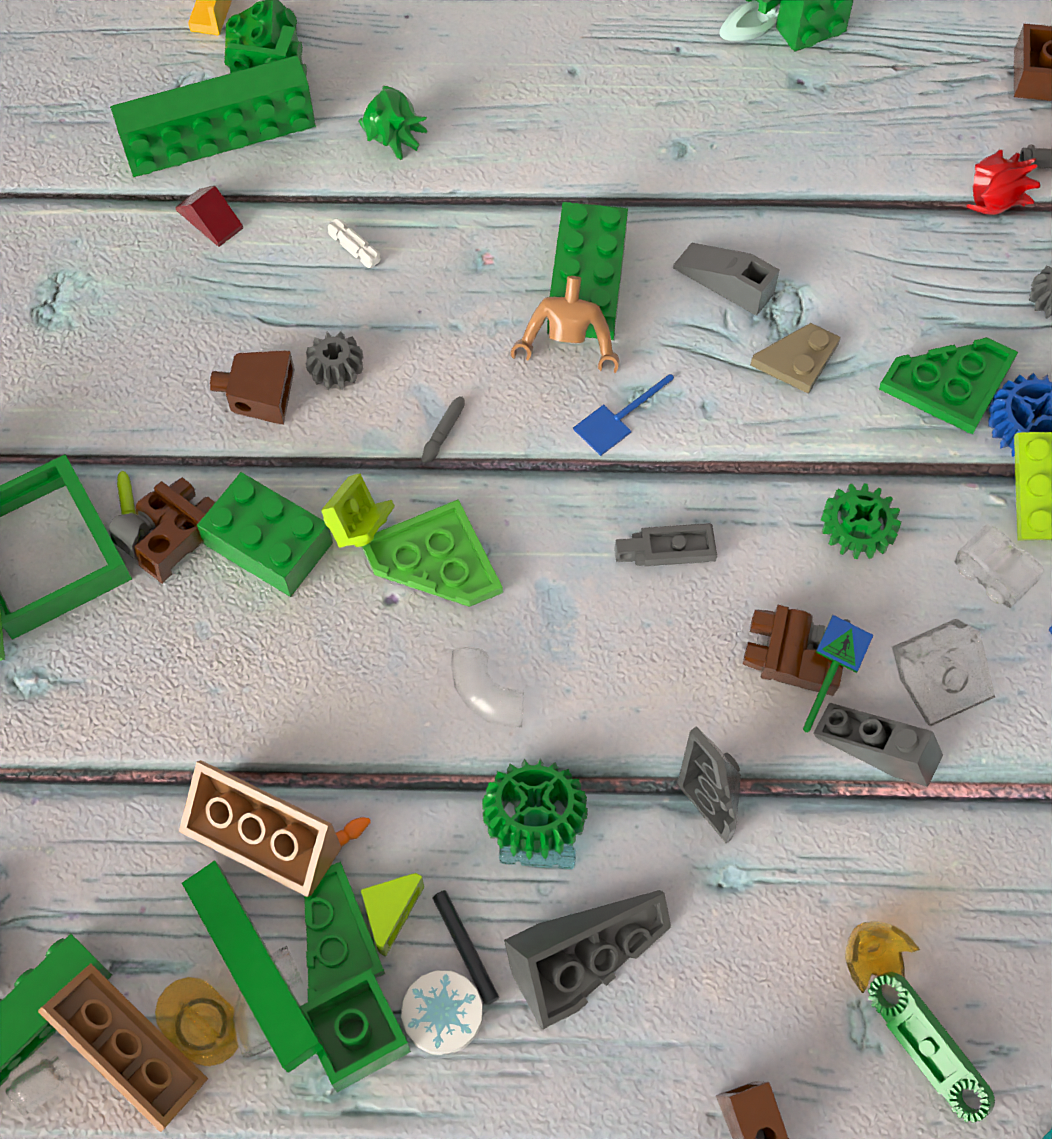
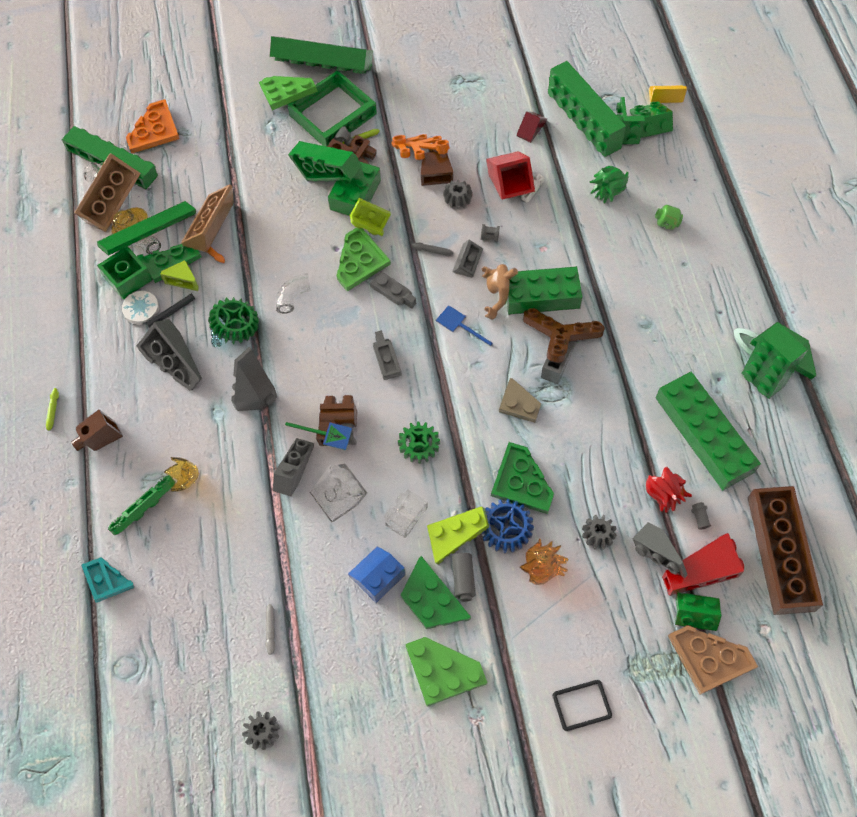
camera: 80 degrees right, 0 degrees up
(176, 429) = (418, 142): none -> orange plant
(206, 562) = (324, 162): none -> green wedge
(322, 260) = (511, 174): none -> red slope
(438, 326) = (490, 232): none -> dark grey bush
(480, 377) = (468, 259): none -> dark grey slope
(484, 60) = (669, 217): none -> bright green head
(520, 511) = (393, 290): none -> dark grey hinge
(684, 241) = (569, 332): none -> reddish brown piece
(899, 111) = (707, 430): none -> green brick

